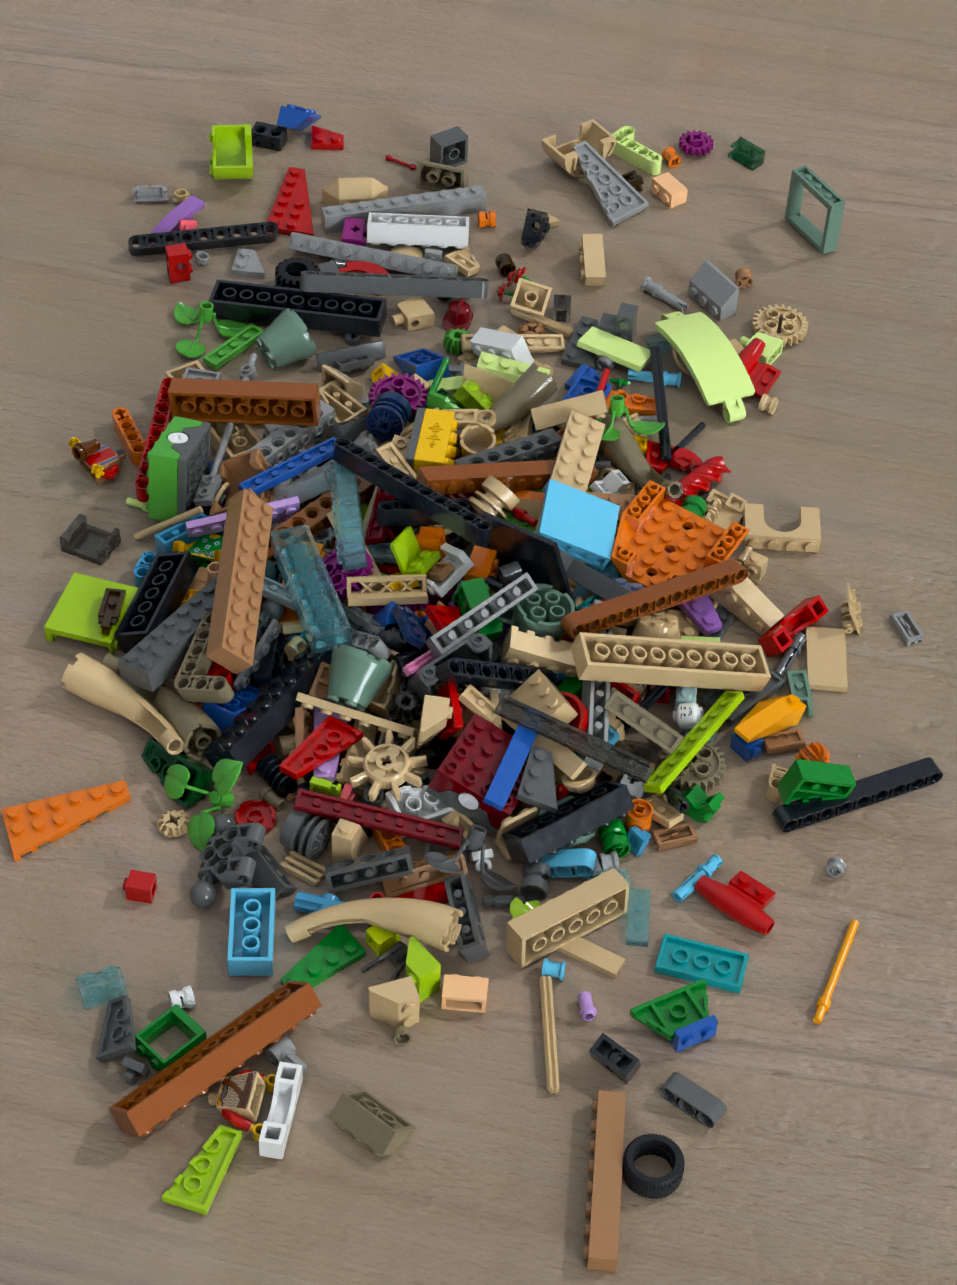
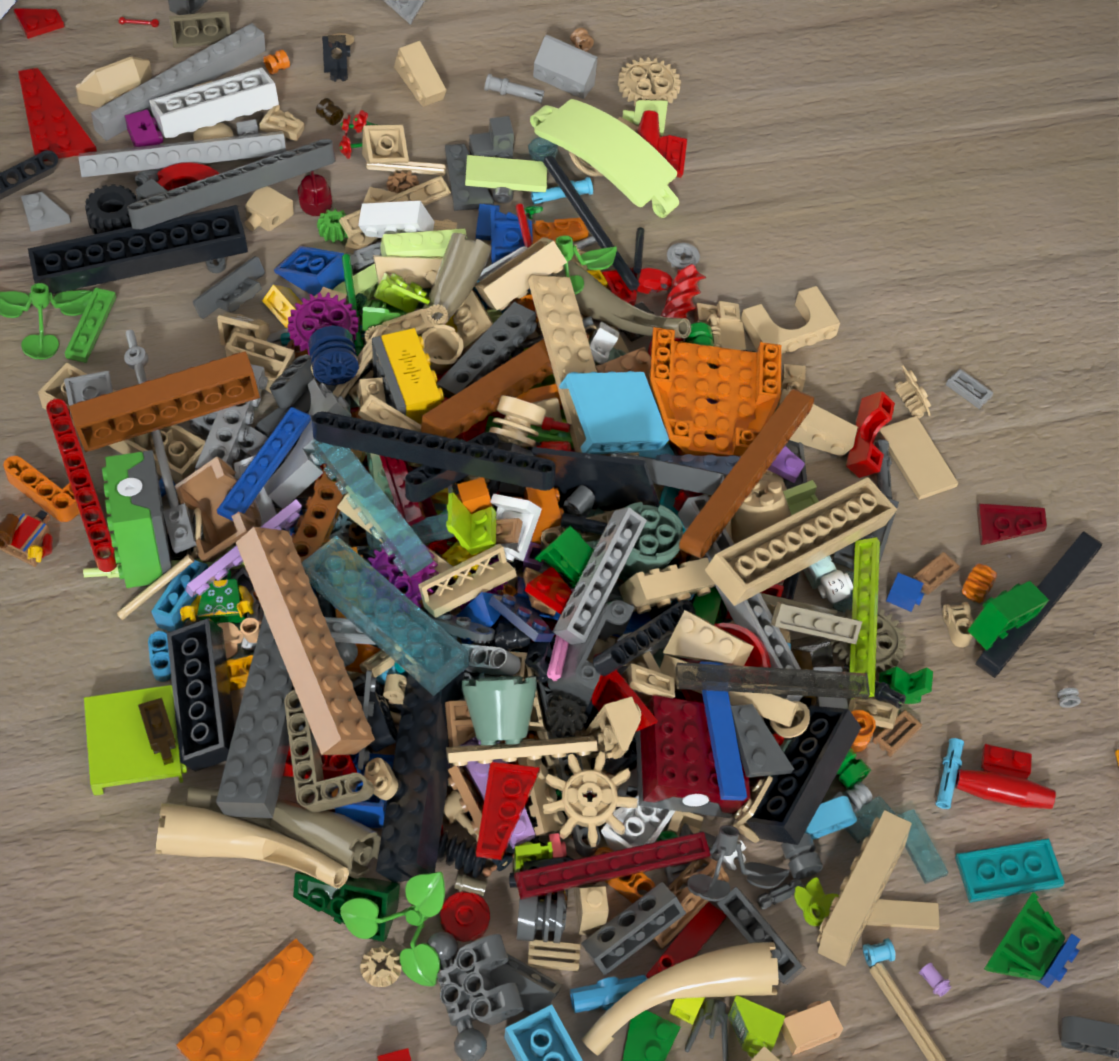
camera: 30 degrees left, 10 degrees up
(89, 541) = (72, 645): clear smoke panel -> none
(245, 697) = (382, 777): none -> tan plate
(285, 341) = (152, 298): sand green cone -> none
(561, 308) = (419, 143): clear smoke brick -> none
(615, 1058) = (1004, 1030): black brick -> none
(638, 840) = (871, 755): dark azure tile -> none
(726, 448) = (676, 251): none -> light grey gear
(768, 404) = (692, 181): tan wheel -> none
(770, 717) = (910, 551): light orange wedge -> none
(799, 686) = (918, 508): sand green hinge -> none
(872, 730) = (1009, 522): none -> dark red wing

